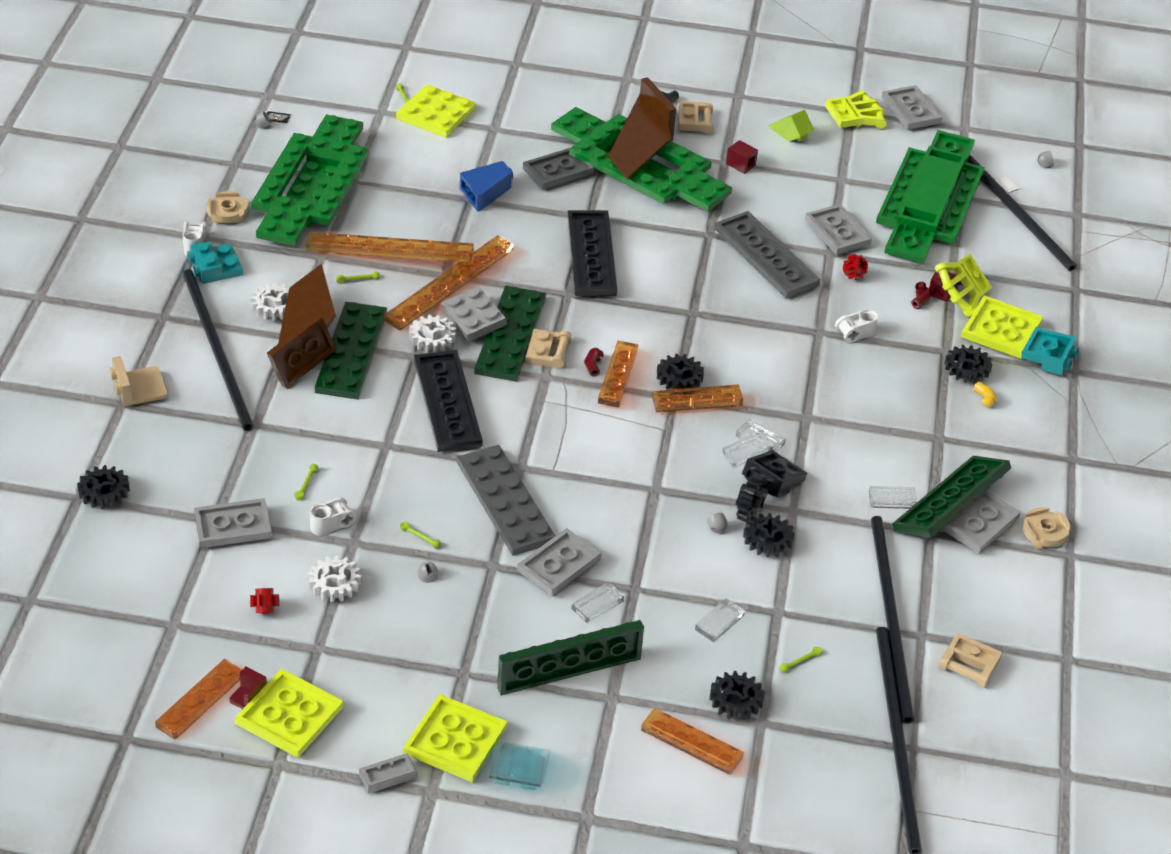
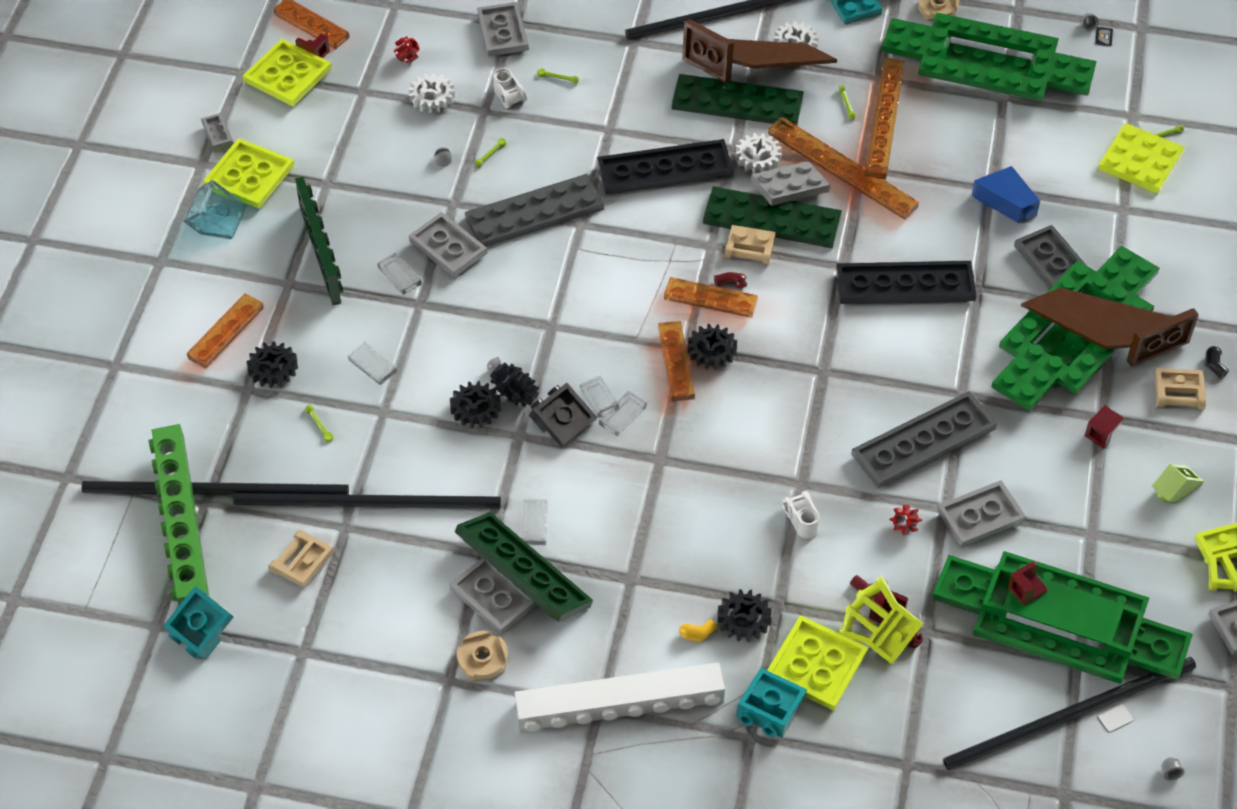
camera: 95 degrees right, 10 degrees up
(921, 197) = (1026, 584): none -> dark red panel
(946, 750) = (172, 440): none -> bright green brick
(1067, 441) = (619, 697): none -> white brick
(1072, 724) = (198, 623): none -> teal plate

